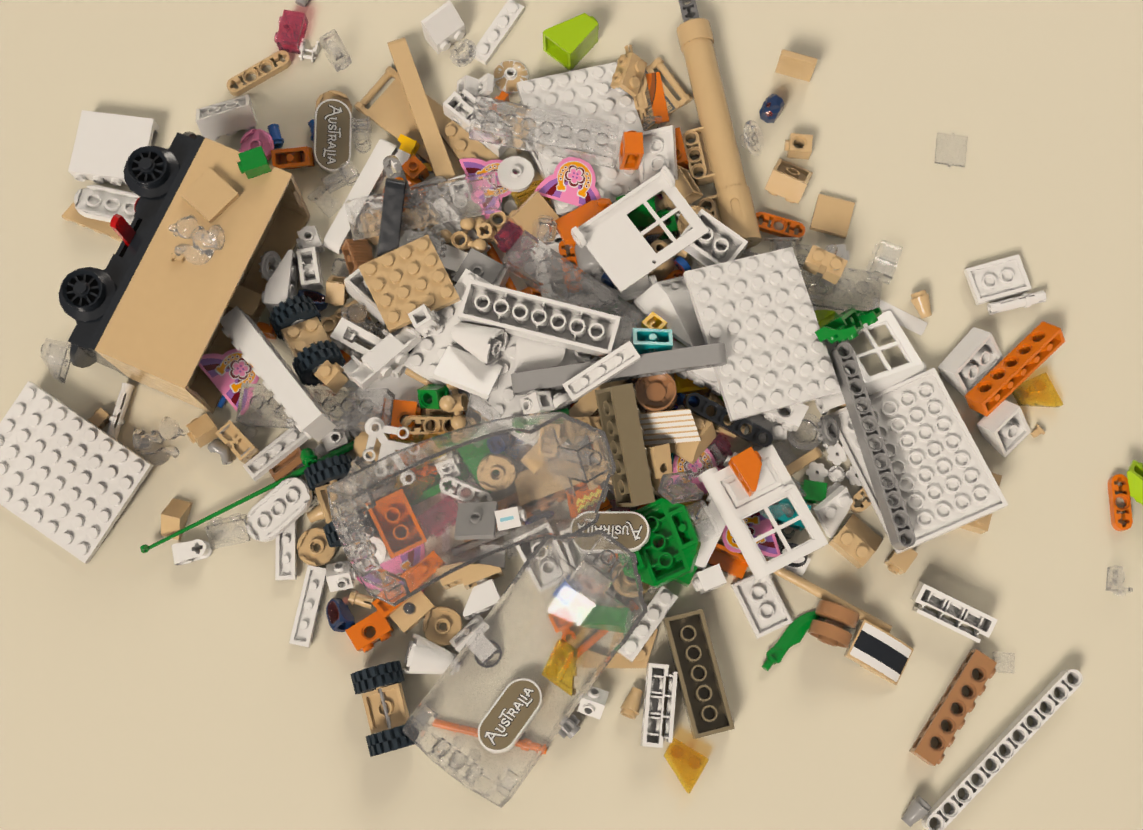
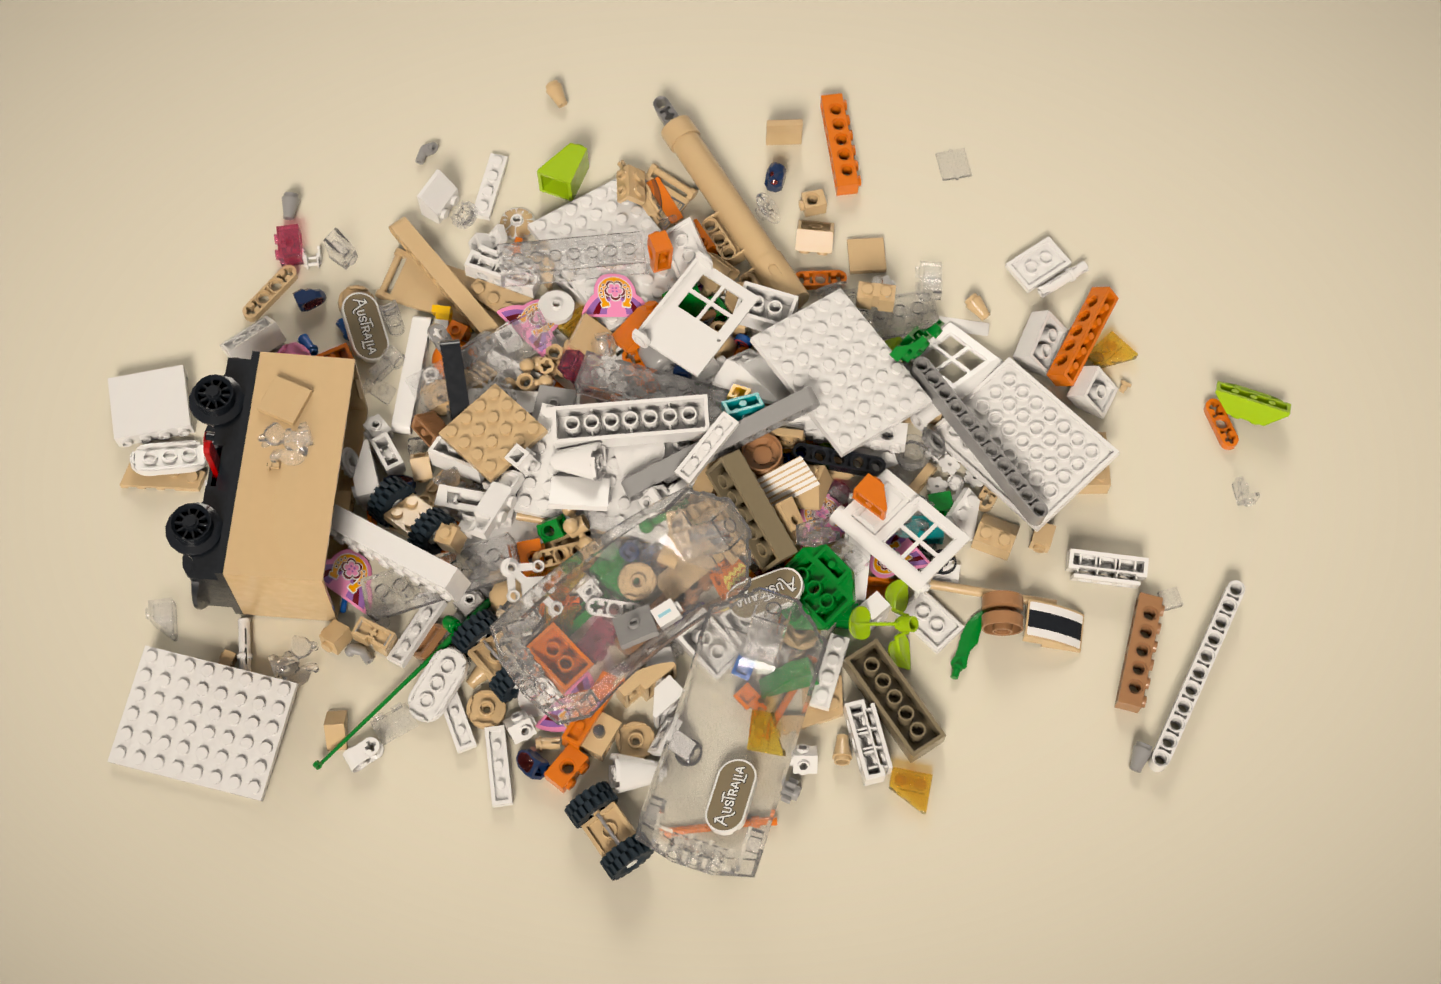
camera: 20 degrees left, 10 degrees down
(253, 162) = (317, 358): green brick -> none
(291, 90) = (309, 298): none -> dark blue rock
(688, 383) = (789, 437): none -> tan tile
(720, 625) = (898, 649): none -> lime plant
(857, 52) = (843, 183): none -> orange brick

